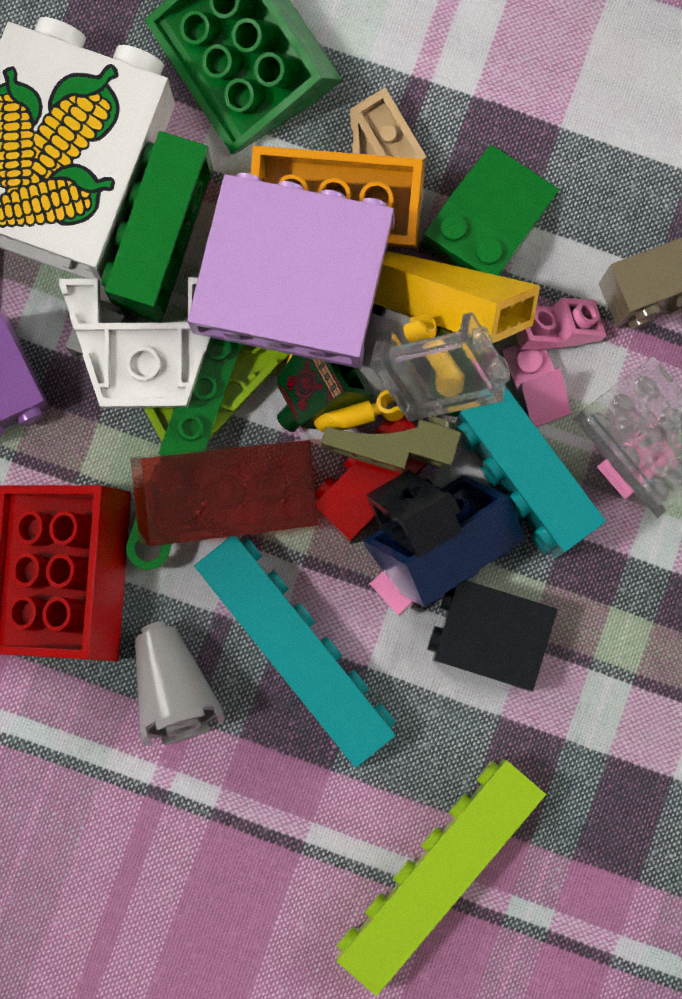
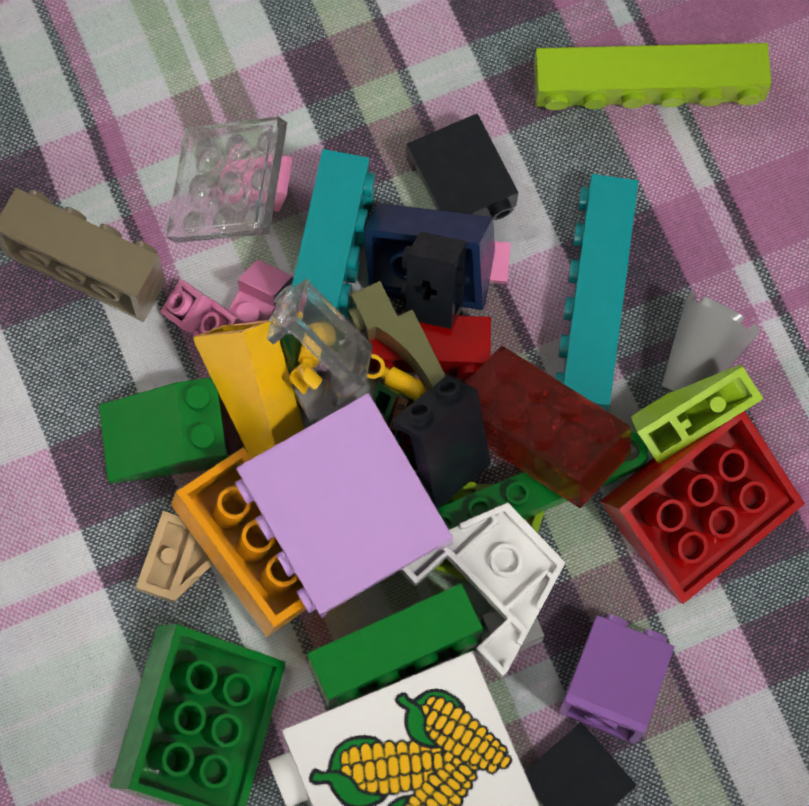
camera: 135 degrees left, 10 degrees down
(125, 618) = (694, 411): none -> lime slope
(279, 399) = (446, 438): none -> black panel

